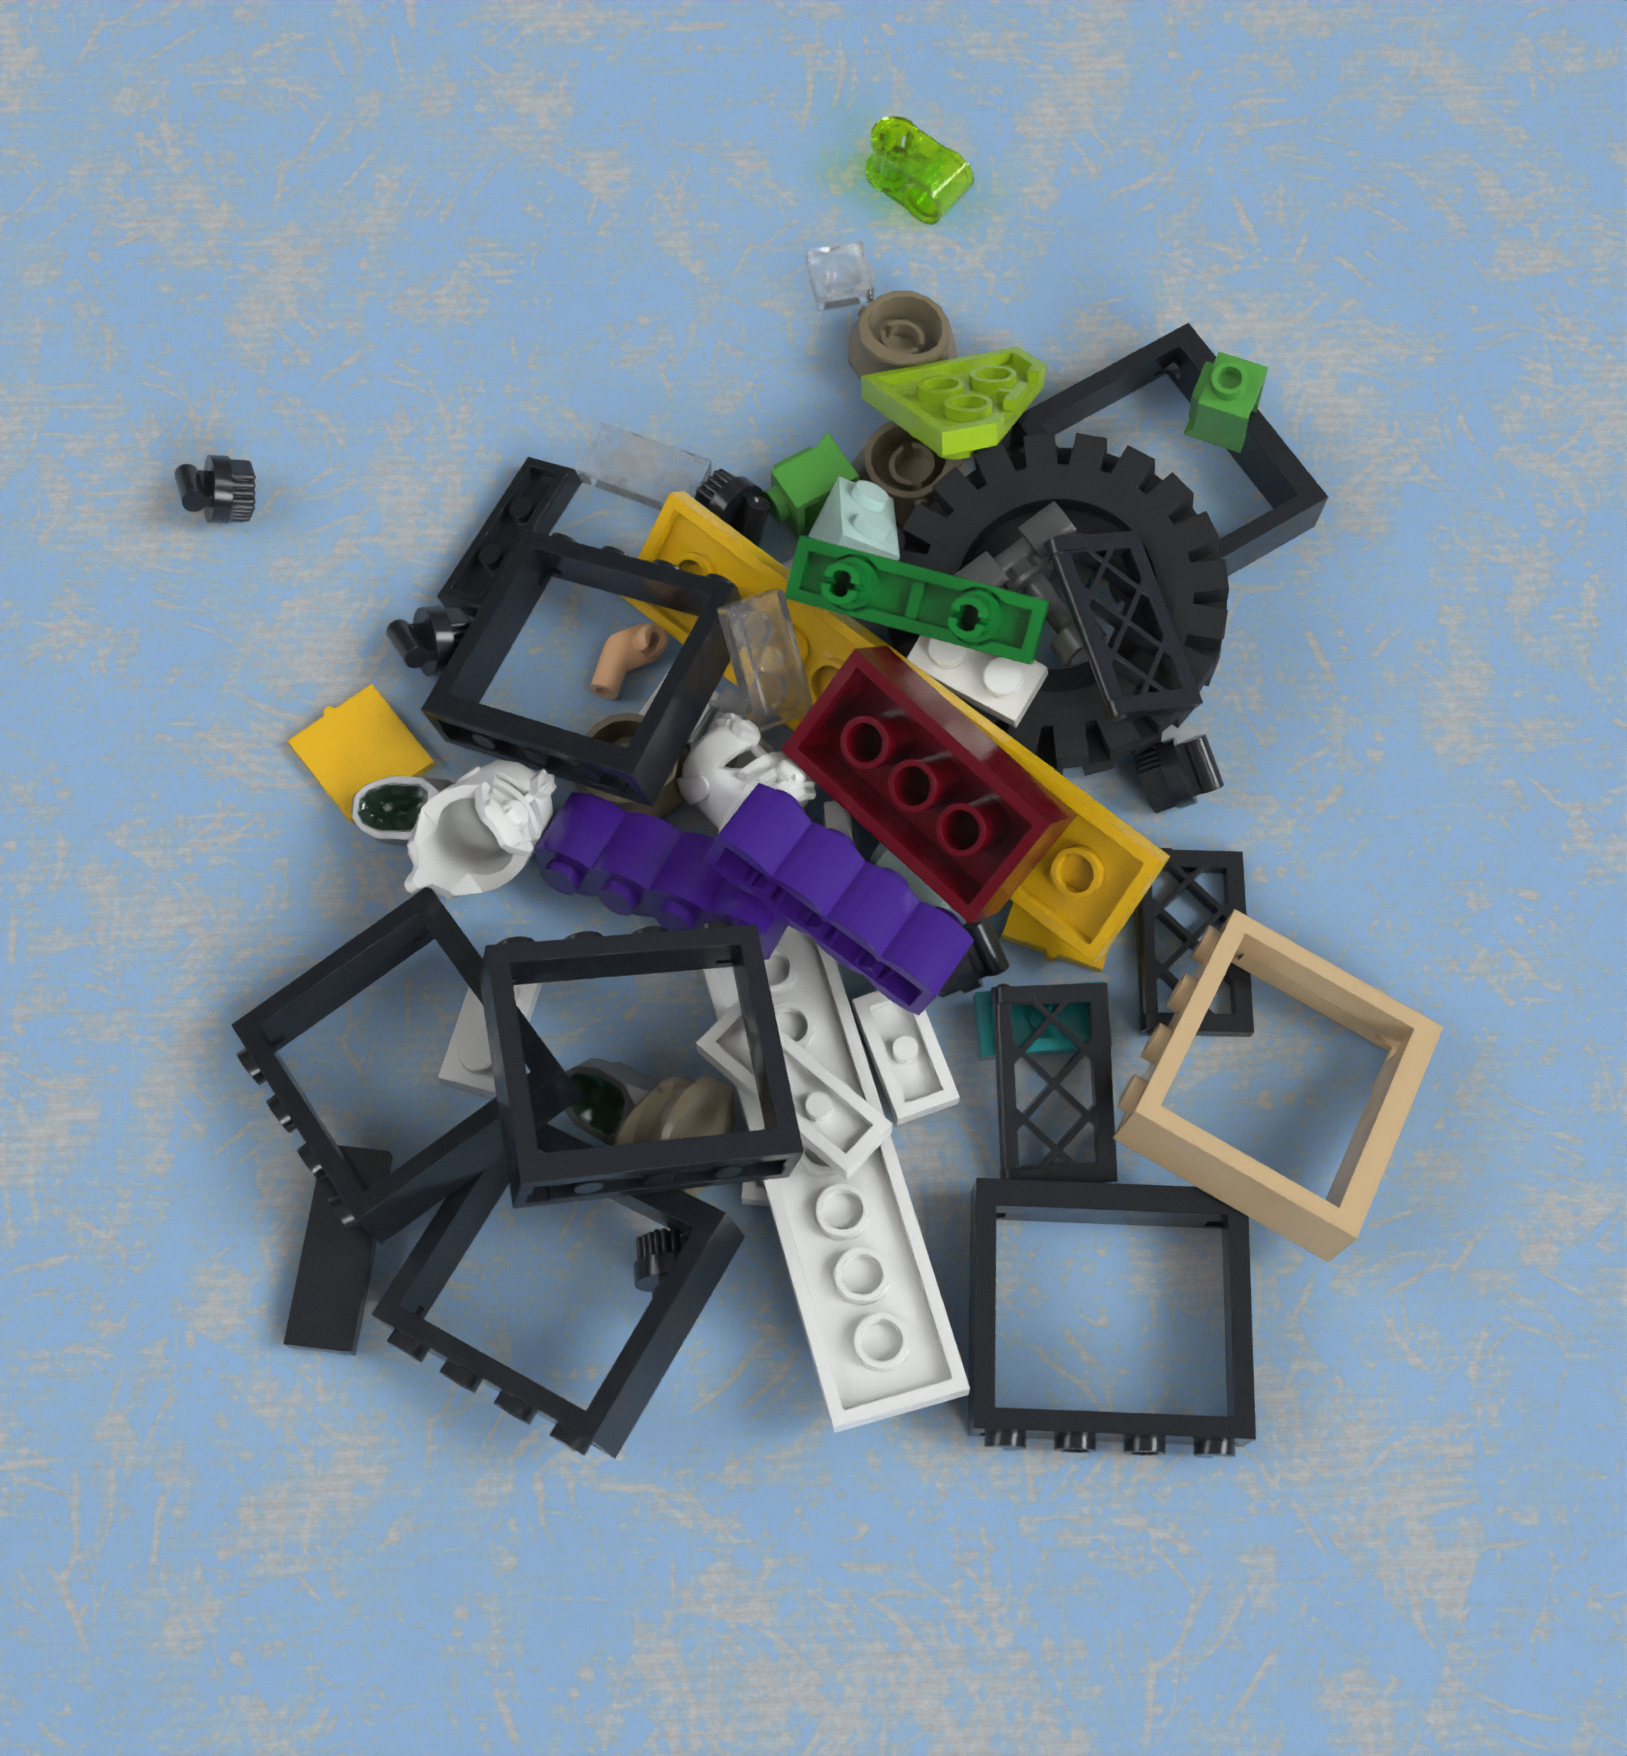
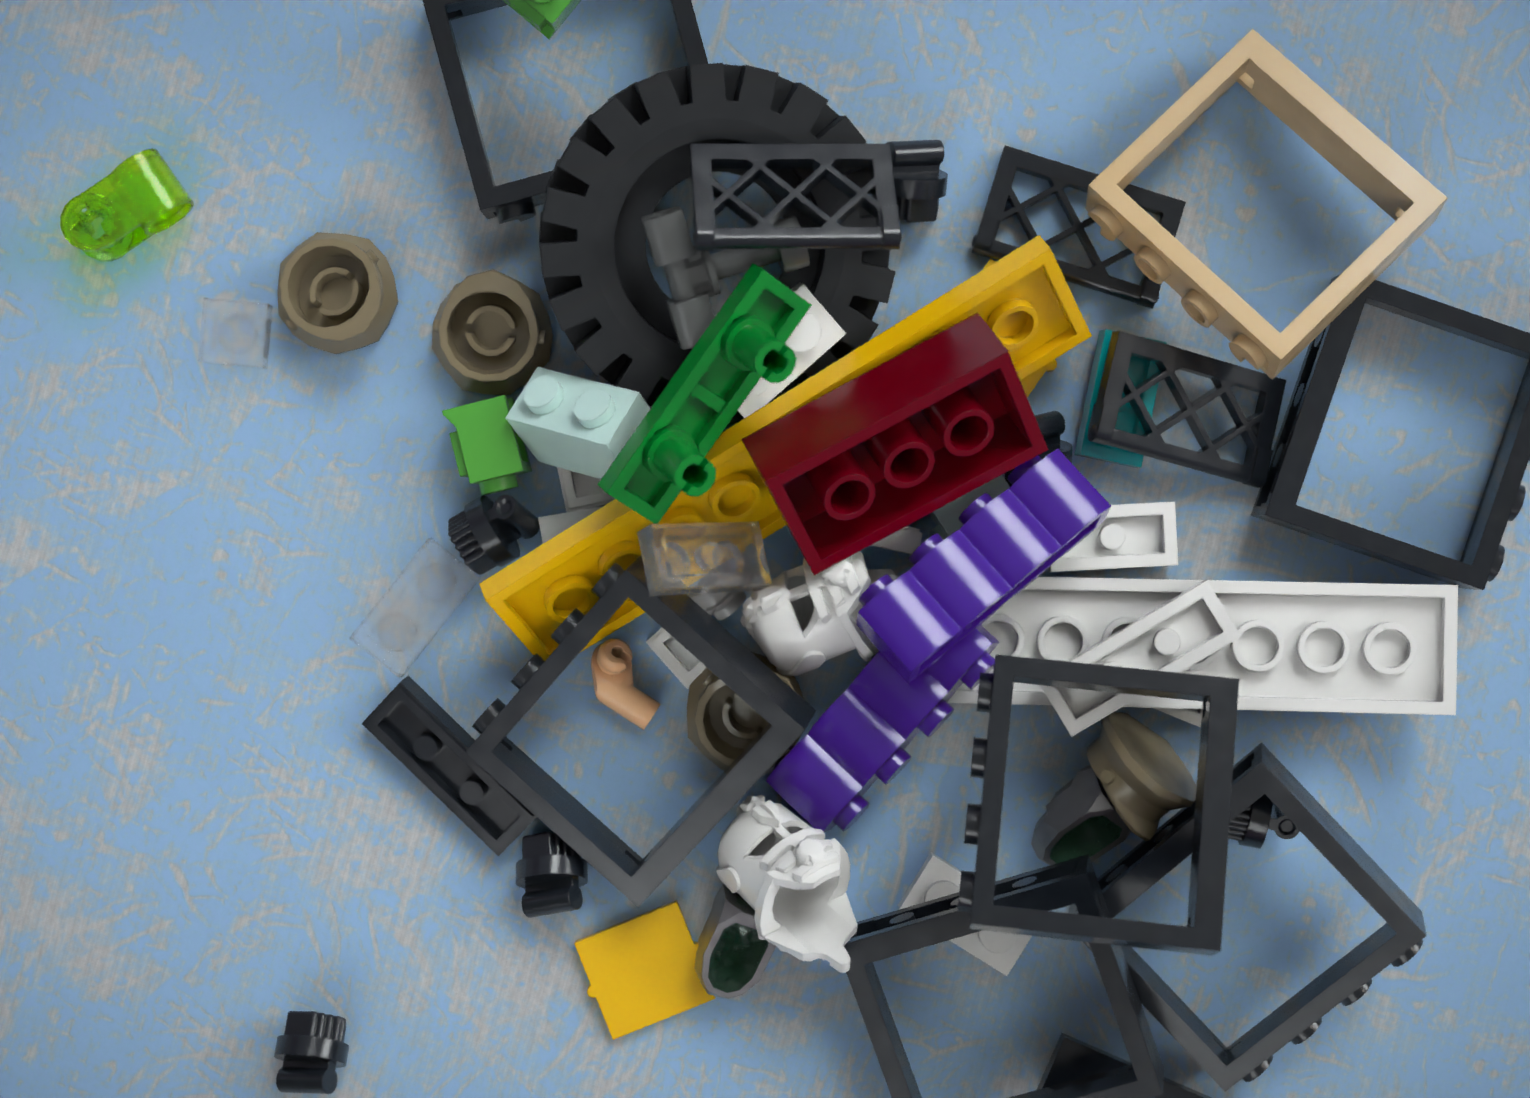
camera: 70 degrees left, 20 degrees up
(958, 400) = (448, 262): lime plate -> none

